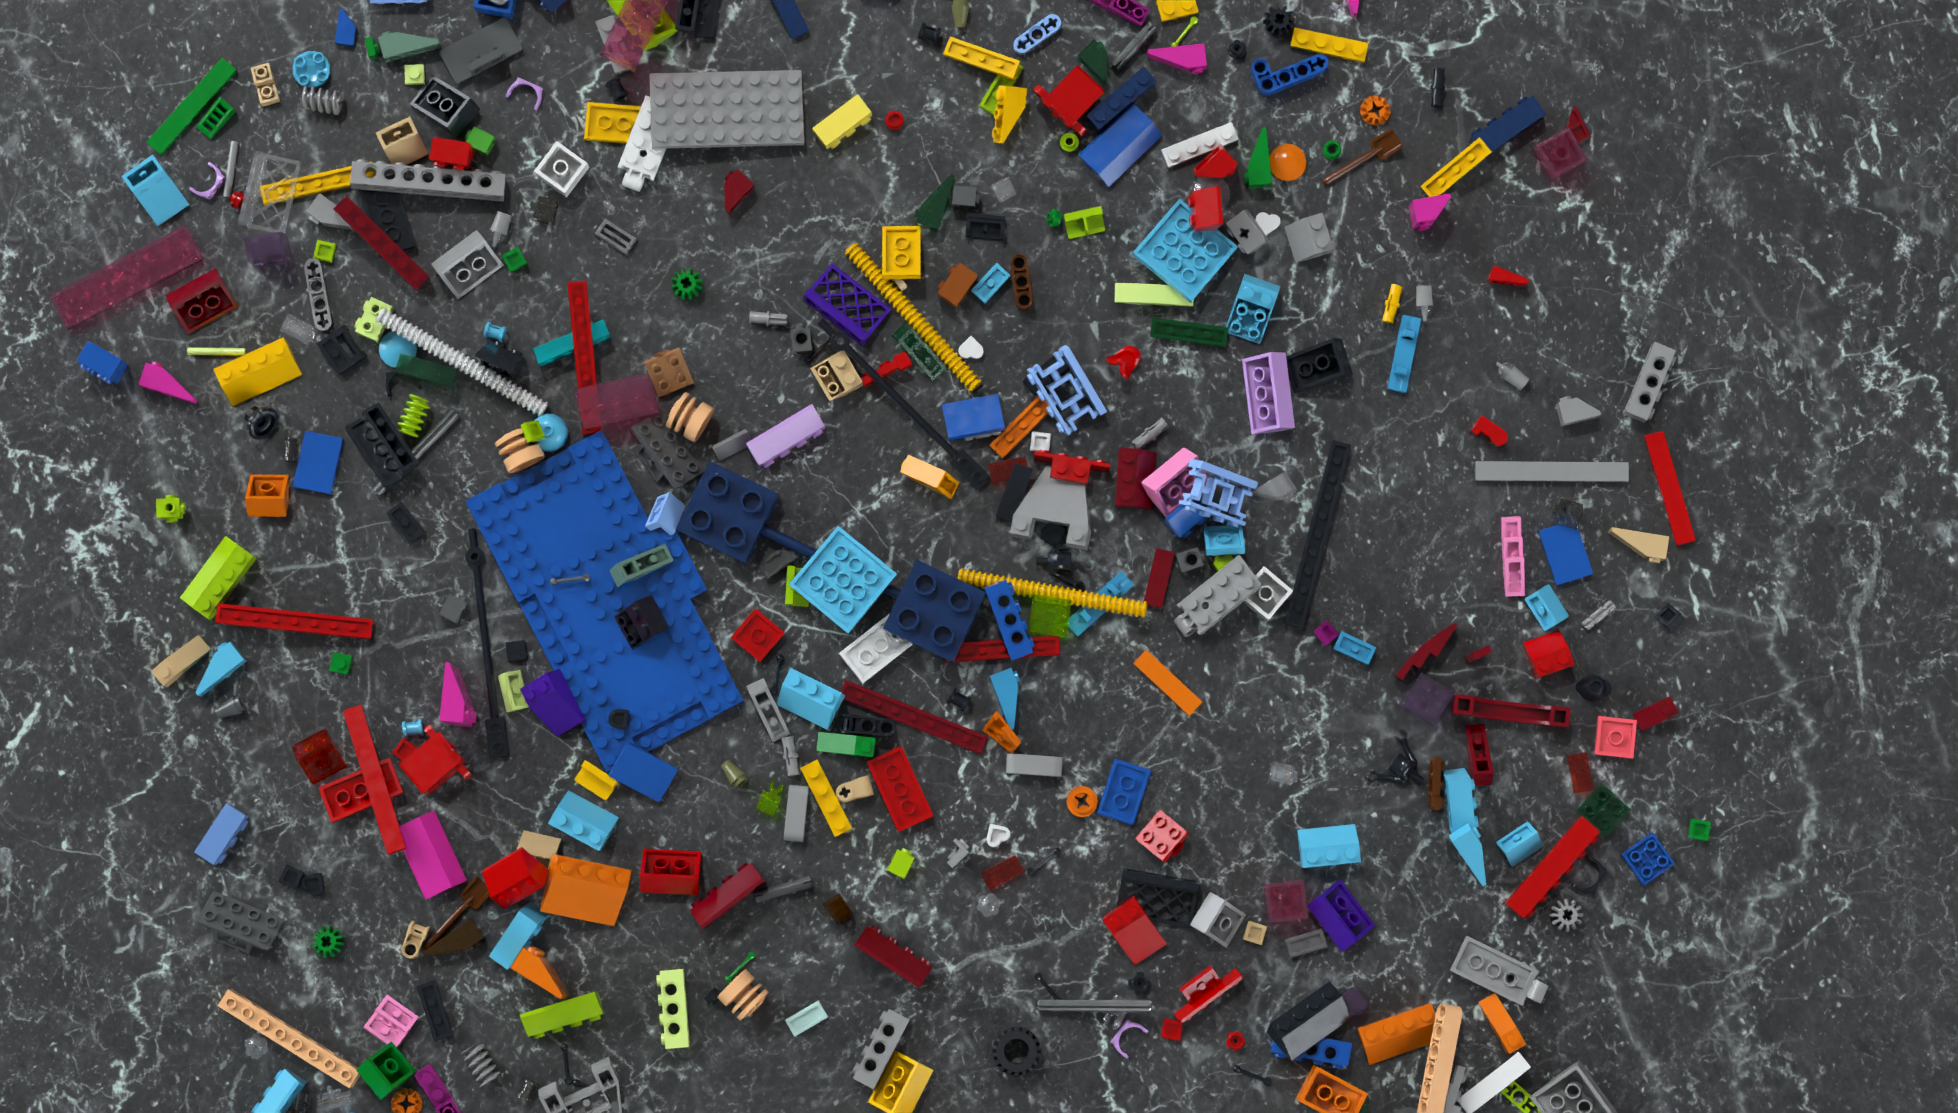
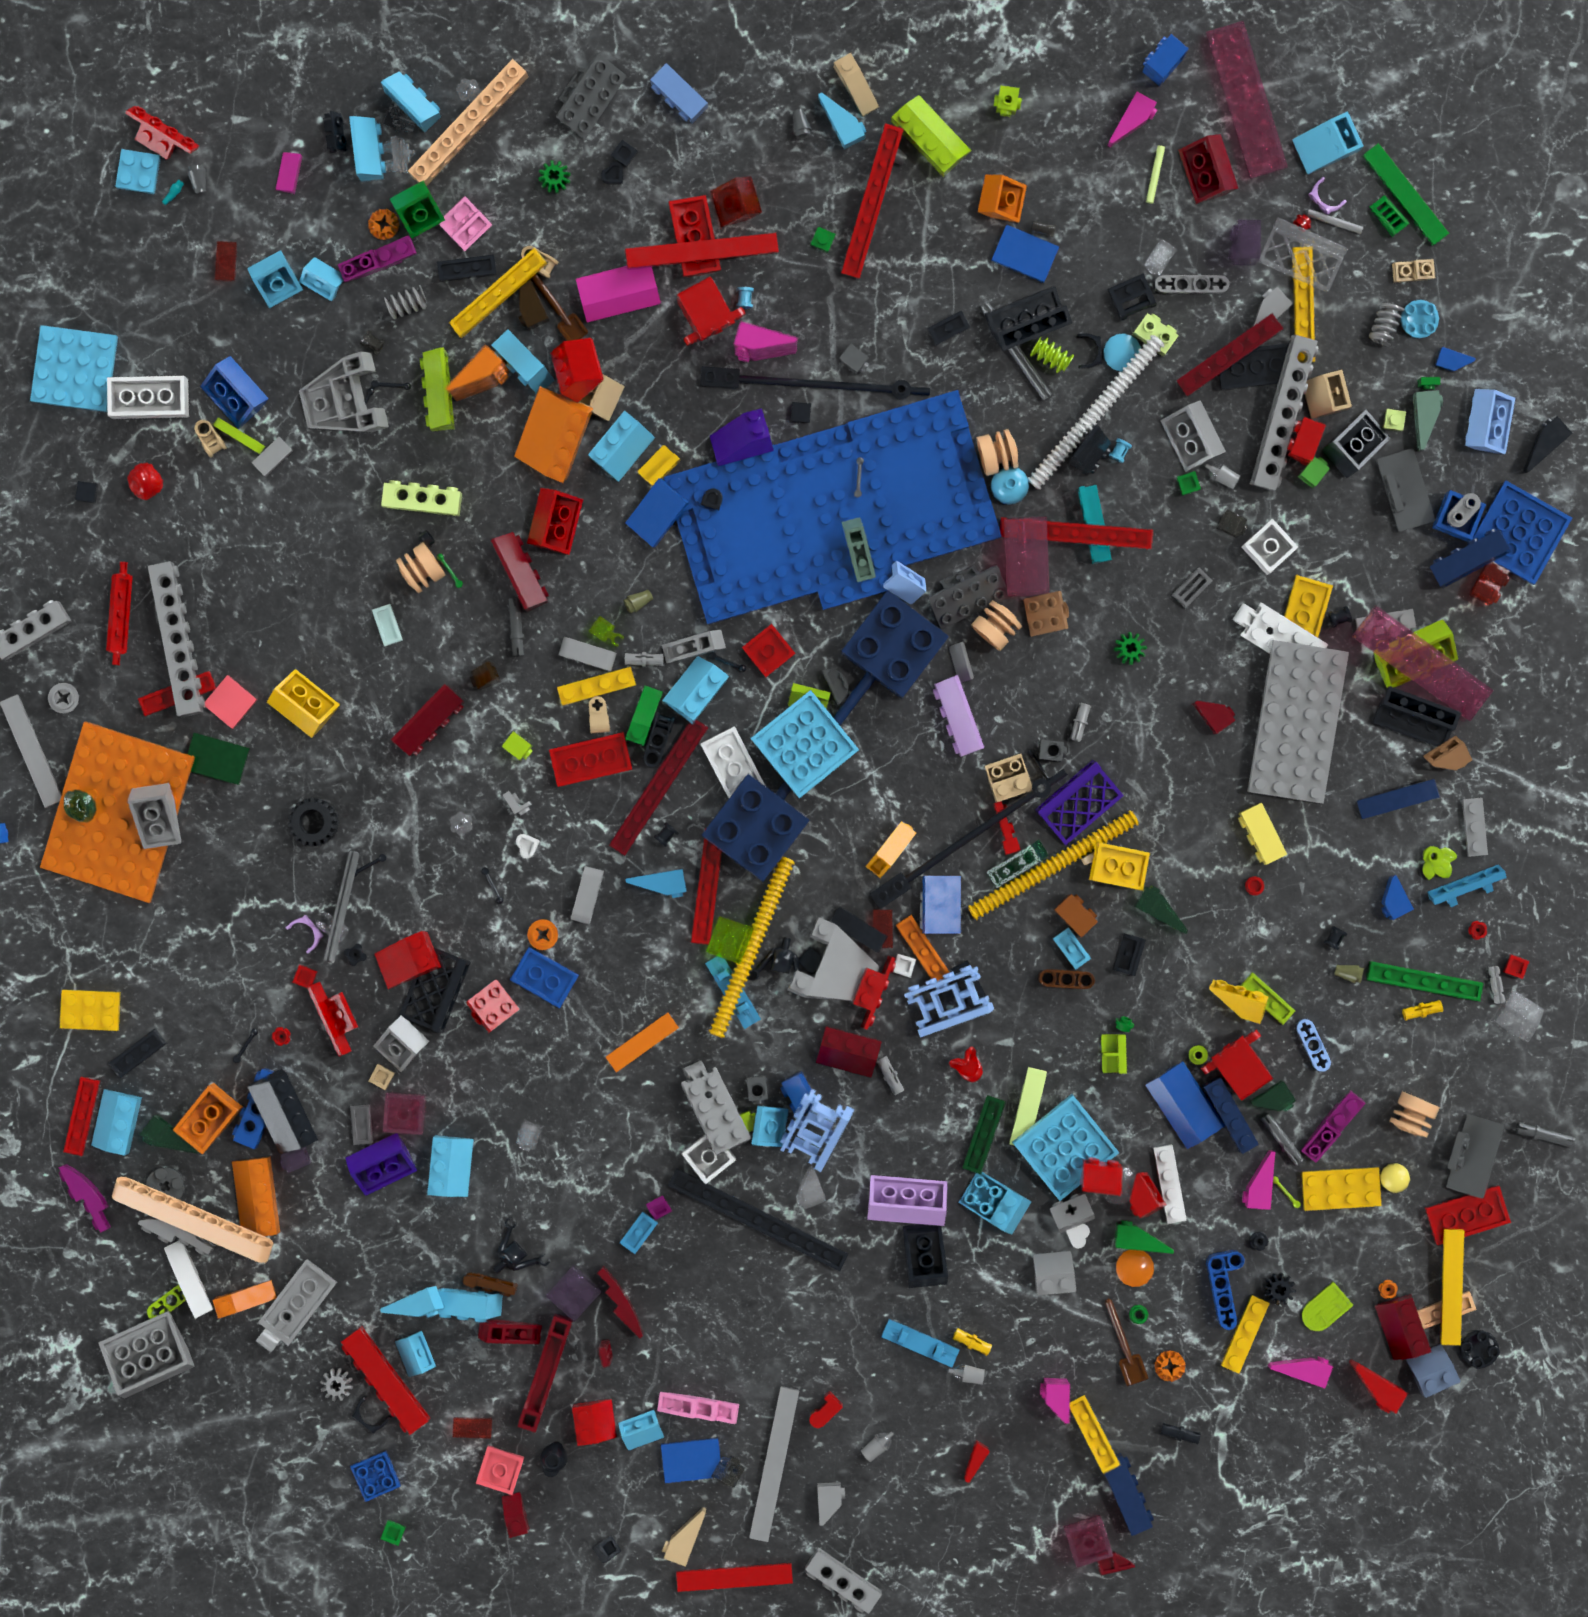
camera: 105 degrees right, 5 degrees up
(258, 371) = (1126, 211): yellow slope -> none
(261, 422) = (1075, 205): black hair -> none
(324, 251) = (1234, 298): lime tile -> none
(404, 749) = (726, 286): red tile -> none
(426, 371) = (1093, 375): clear green slope -> none
(454, 973) = (498, 293): none -> yellow tile
(510, 687) = (769, 401): yellowish green slope -> none
(518, 82) = (1354, 539): lavender cap -> none
(532, 431) = (1012, 468): lime tile -> none
(641, 622) = (802, 539): black slope -> none
(899, 1024) = (317, 676): light grey brick -> none
(965, 197) = (1162, 940): dark grey brick -> none
(970, 348) = (1010, 915): white tile -> none
(981, 58) = (1299, 985): yellow plate -> none
(1002, 733) = (624, 869): orange wing -> none
(1002, 872) = (489, 843): clear red tile -> none
(1003, 189) = (1163, 980): clear tile -> none
(1015, 649) = (703, 899): blue brick -> none
(1159, 577) = (746, 1054): dark red tile -> none
(1170, 481) = (837, 1087): bright pink slope -> none
(1598, 615) = (623, 1479): light grey axle -> none
(1603, 810) = (431, 1442): clear green slope -> none

